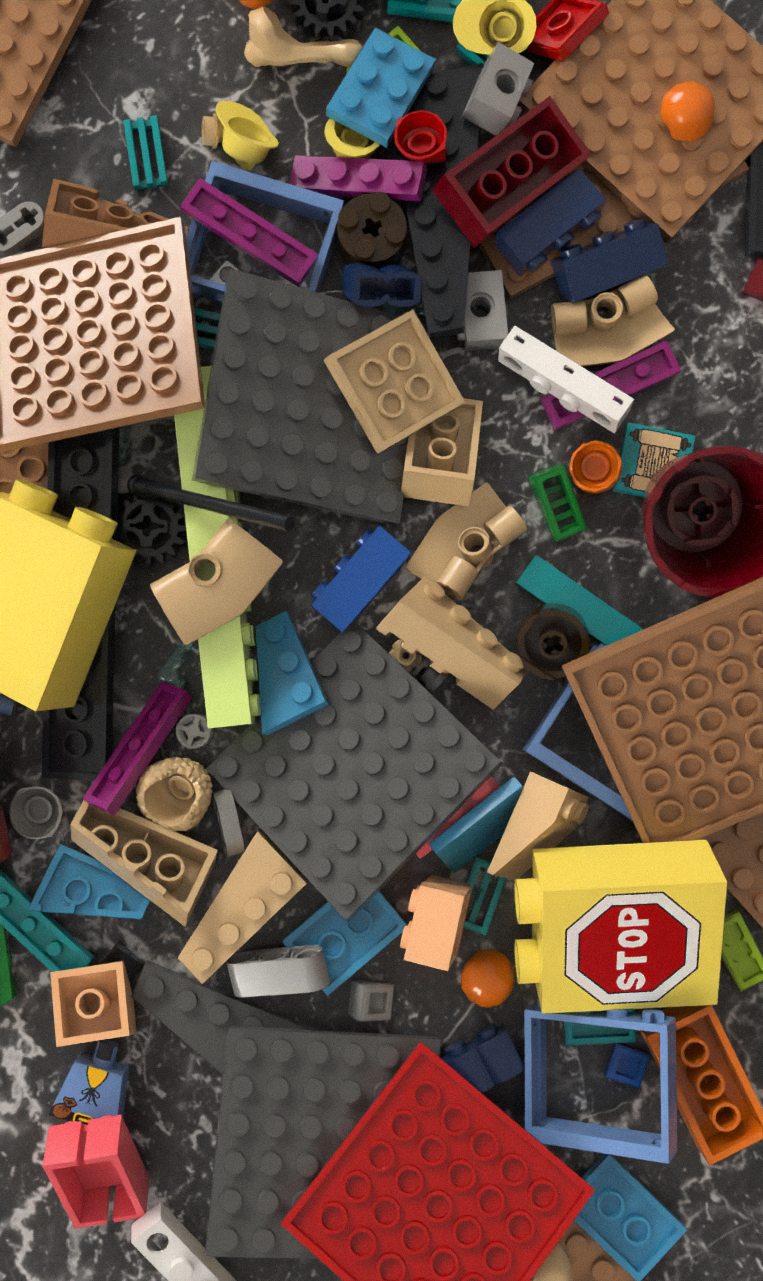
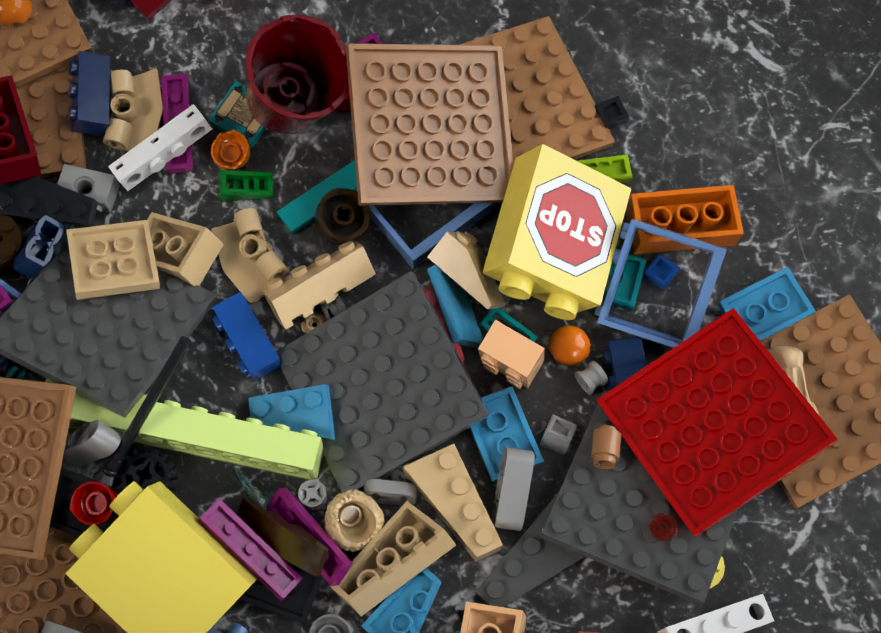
camera: 70 degrees left, 15 degrees down
(82, 484) = (92, 502): none -> red hat
(92, 687) = (250, 549): none -> magenta plate
(120, 722) = (286, 539): none -> dark brown slope
(157, 451) = (90, 443): none -> light grey beam
(240, 575) = (220, 438): tan panel -> none
(277, 1171) = (660, 533): none -> clear red plate
(361, 1075) = (605, 447): none -> medium nougat brick
(454, 1021) = (591, 377): none -> light grey wheel
(550, 223) = (46, 120): dark blue brick -> none

